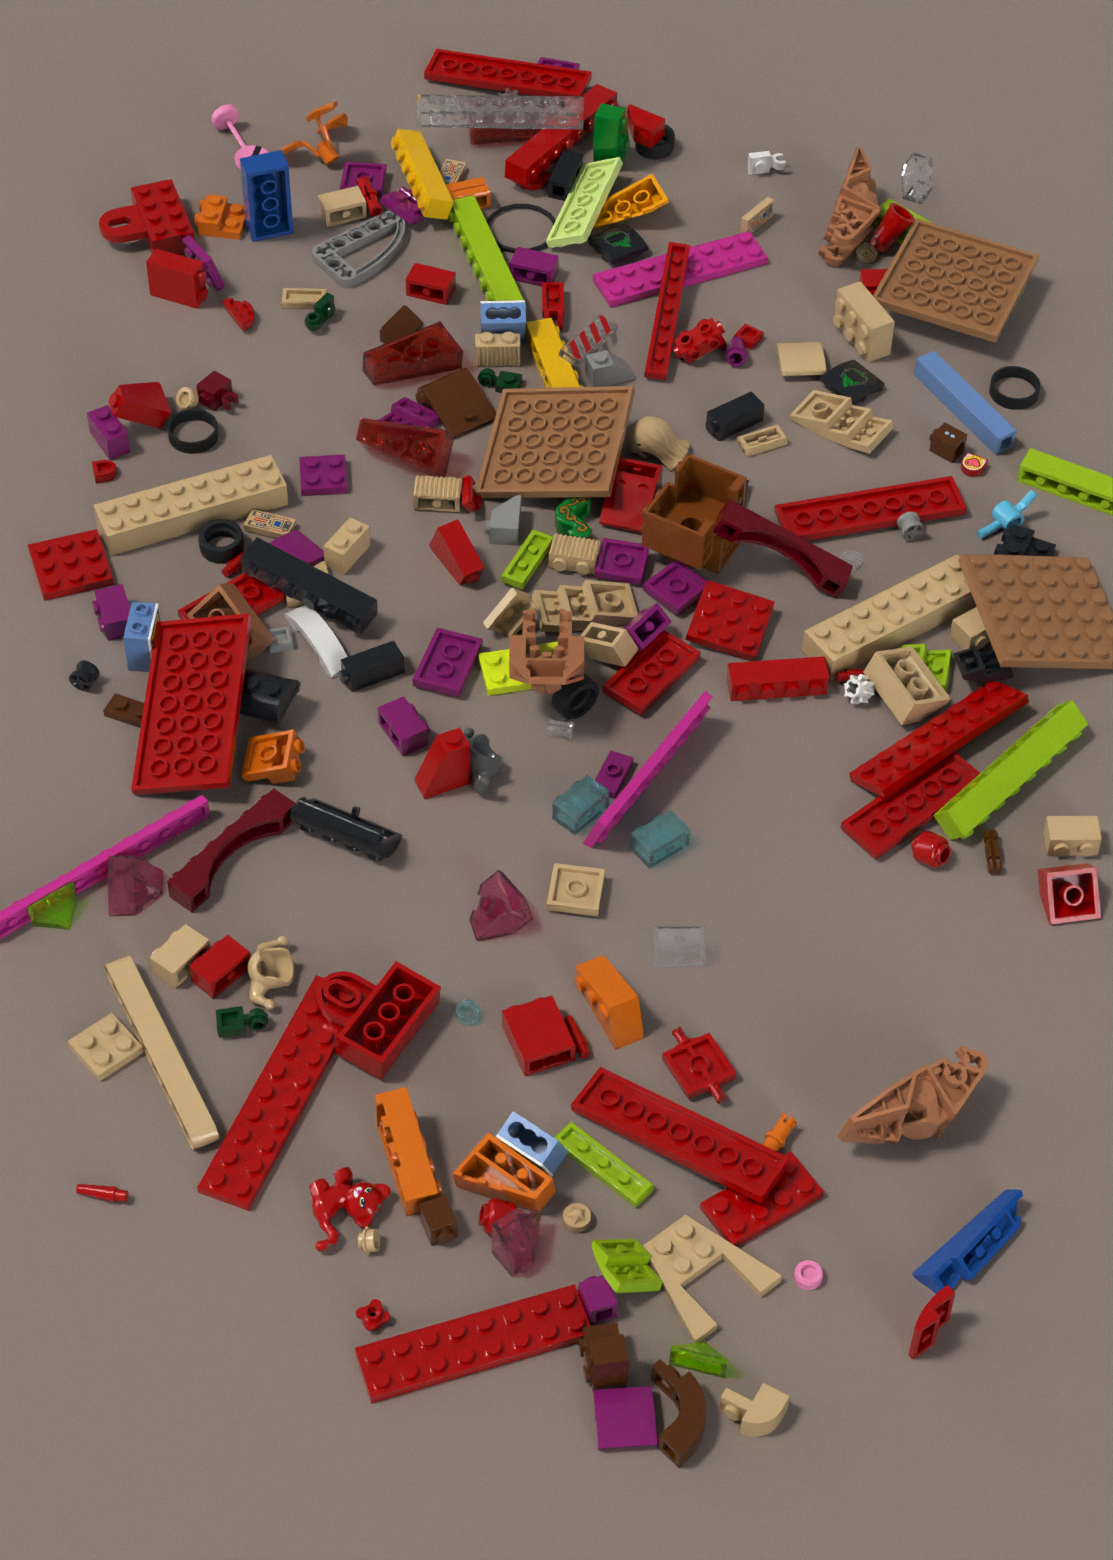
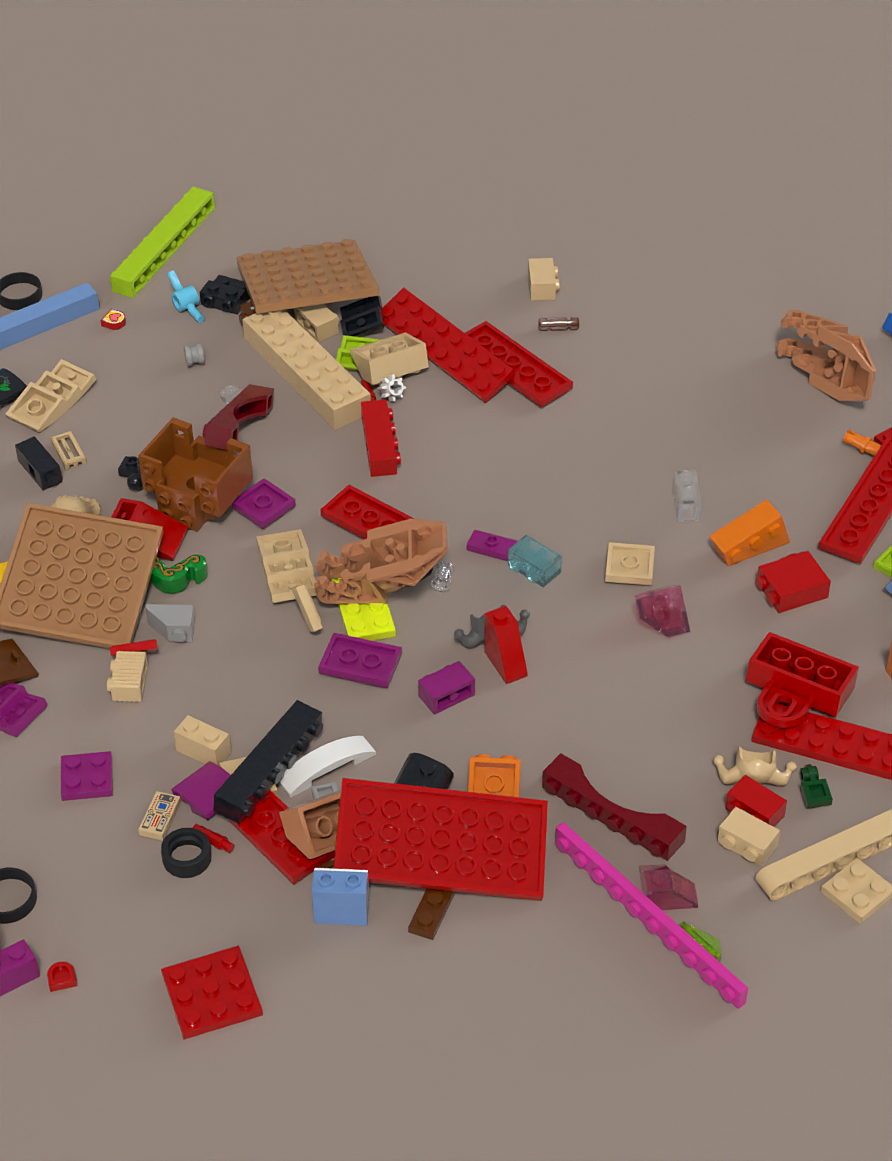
camera: 90 degrees left, 5 degrees down
(84, 675) = (387, 954): black wheel -> none
(113, 609) = (293, 936): magenta brick -> none
(190, 504) = (133, 882): tan brick -> none
(345, 827) = (580, 718): black container -> none
(372, 666) = (369, 714): black brick -> none
(411, 445) = (63, 693): clear red wedge -> none
(457, 553) = (216, 655): red slope -> none
(474, 1015) = (772, 626): clear light blue bush -> none
(527, 559) = (223, 607): lime plate -> none
(574, 554) = (220, 572): tan brick -> none
(608, 644) = (350, 530): tan brick -> none
(621, 561) = (228, 540): magenta plate -> none
(647, 625) = (325, 519): magenta brick -> none
(648, 771) = (495, 509): dark pink plate -> none
(659, 838) = (569, 510): clear light blue brick -> none
(699, 1065) = (803, 486): red plate -> none
(730, 620) = (308, 466): red plate -> none
(870, 508) = (169, 375): red plate -> none
(931, 849) = (564, 352): red head -> none
(948, 442) = (89, 329): reddish brown brick -> none
(1011, 770) = (480, 304): lime brick -> none
(1069, 893) = (598, 282): red slope -> none

